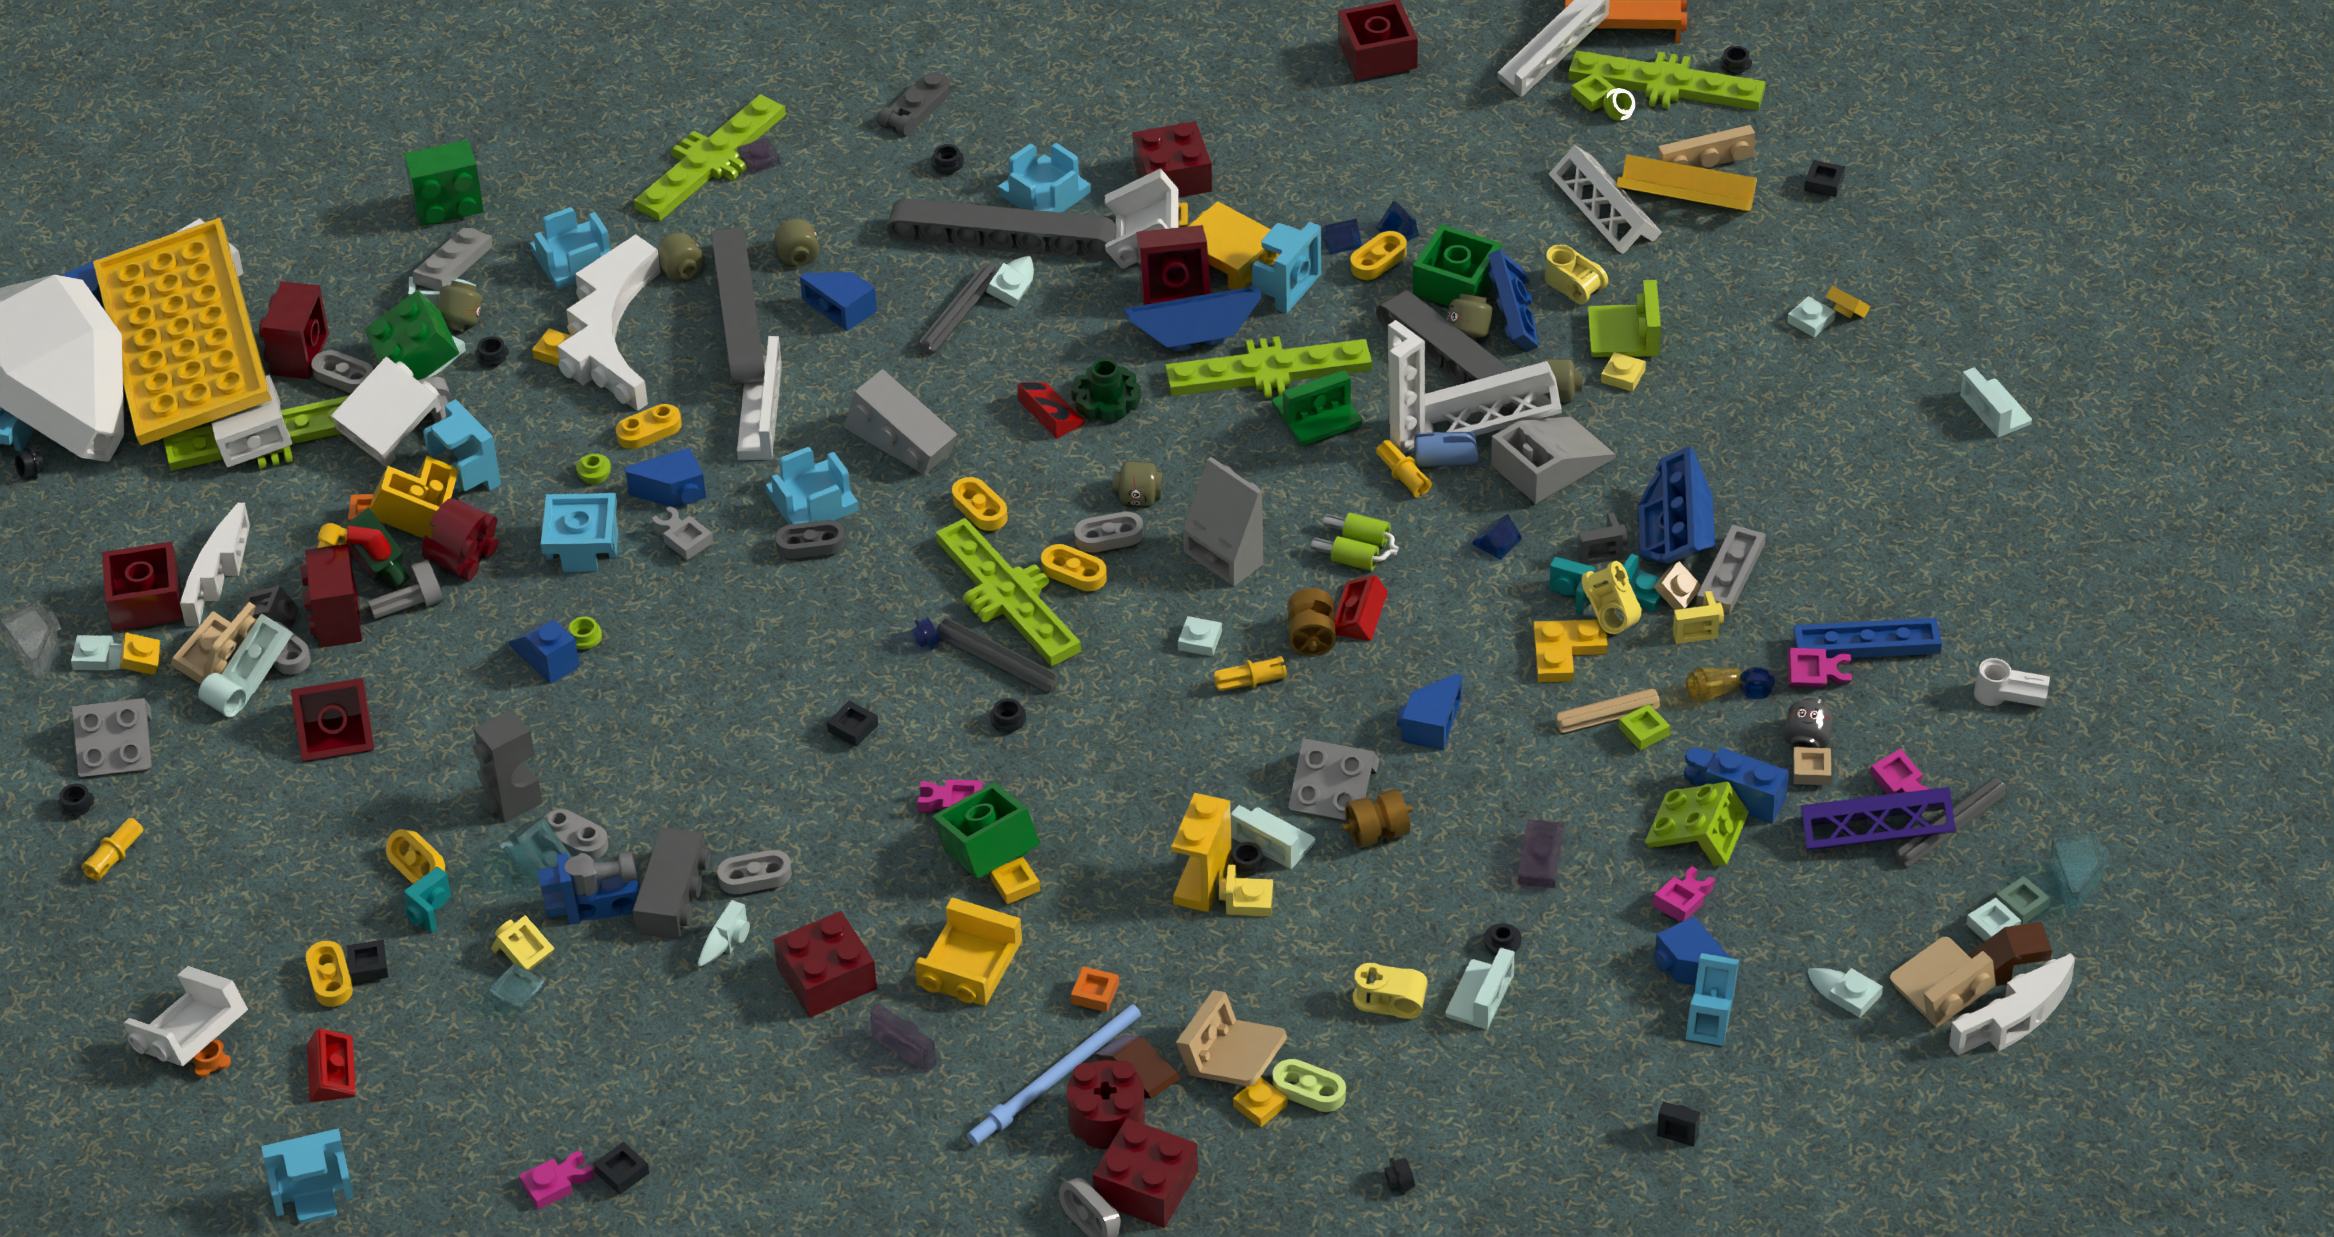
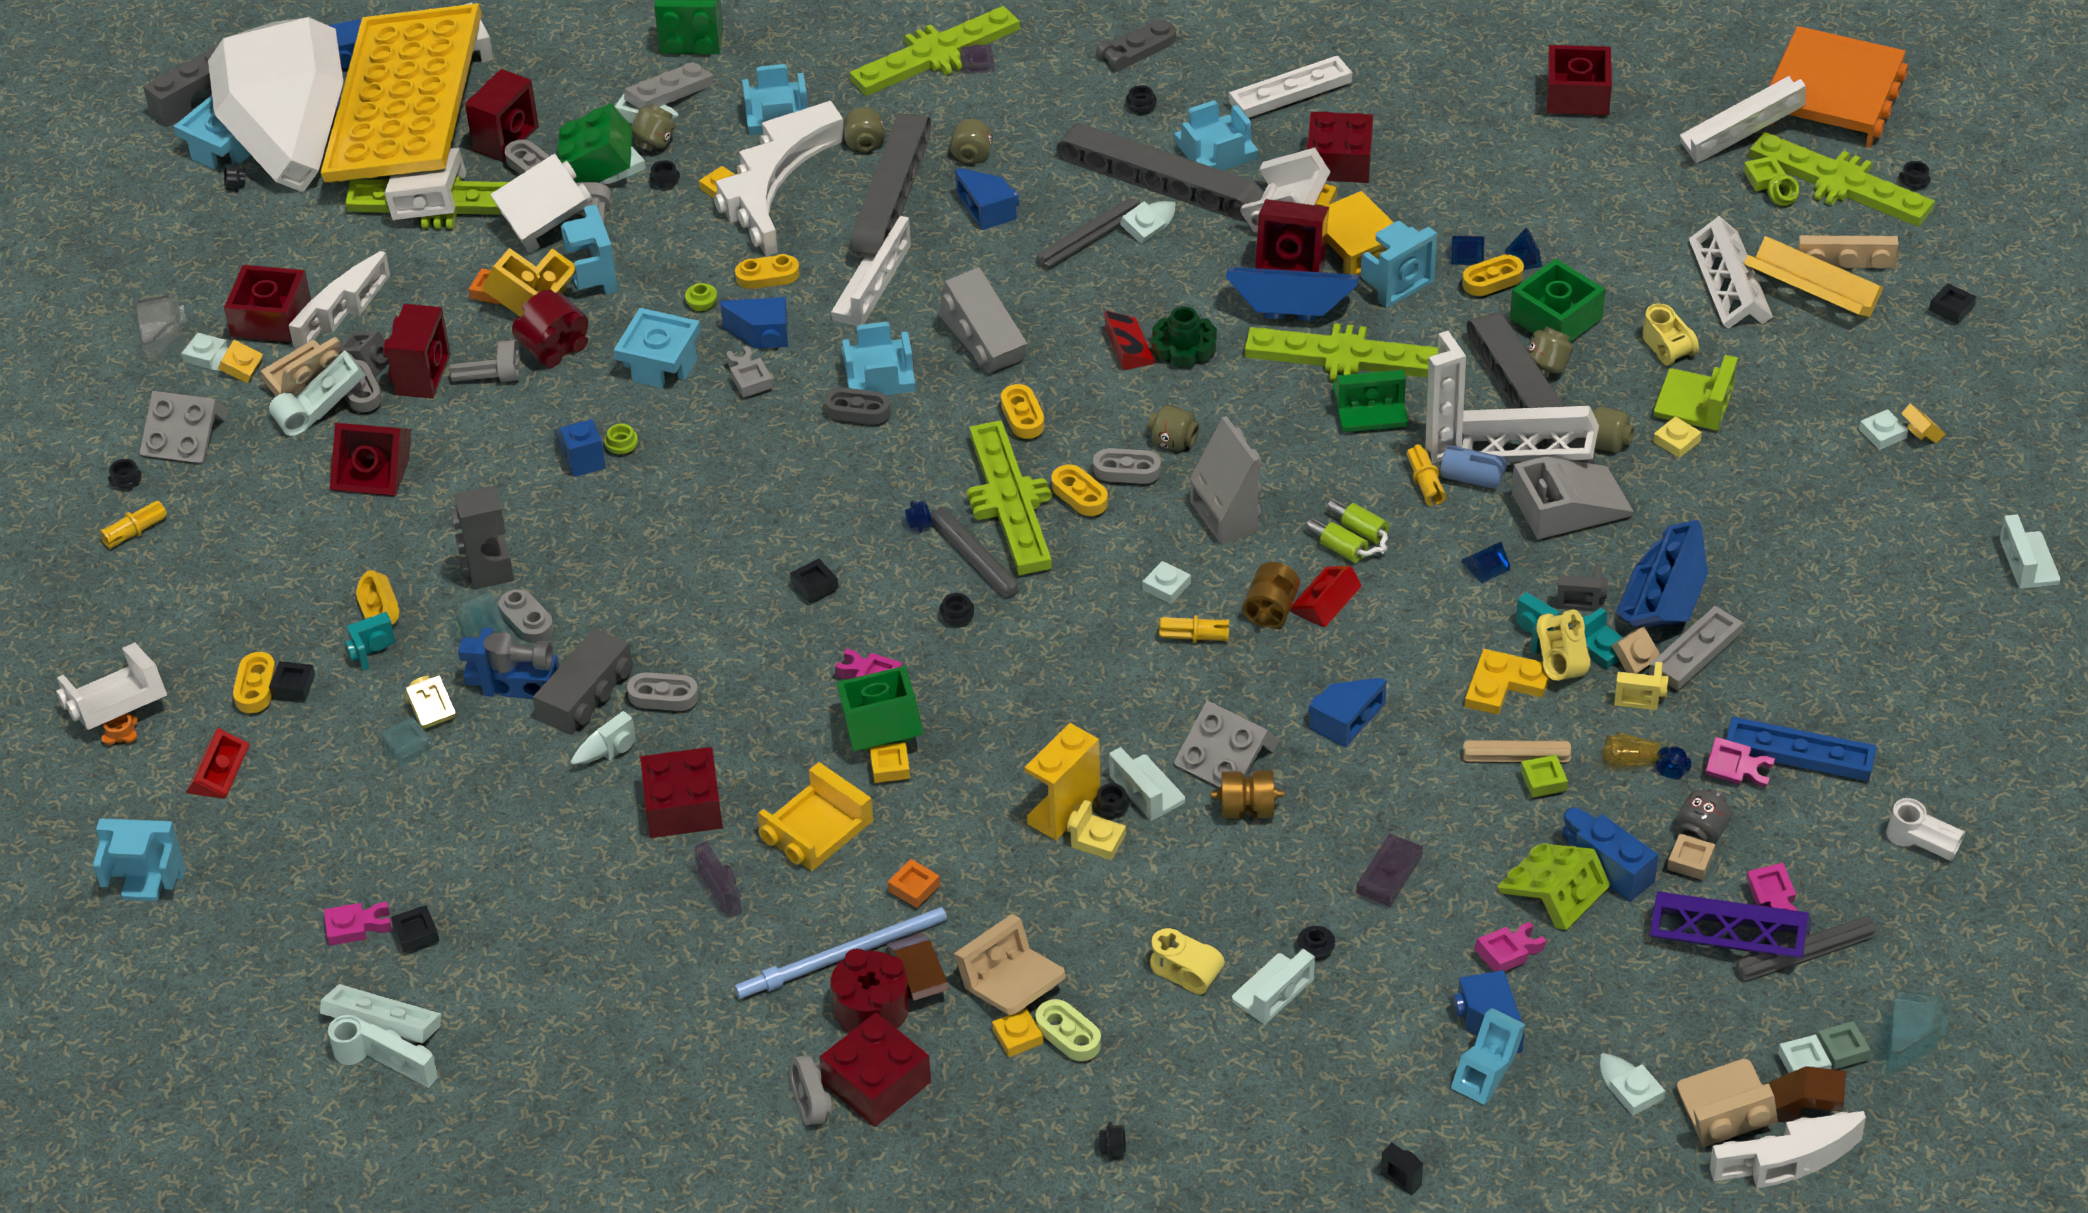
camera: 20 degrees right, 0 degrees up
(369, 546) = (467, 312): torso -> none
(1093, 111) = (1291, 86): none -> white plate
(1513, 300) = (1599, 344): blue wing -> none

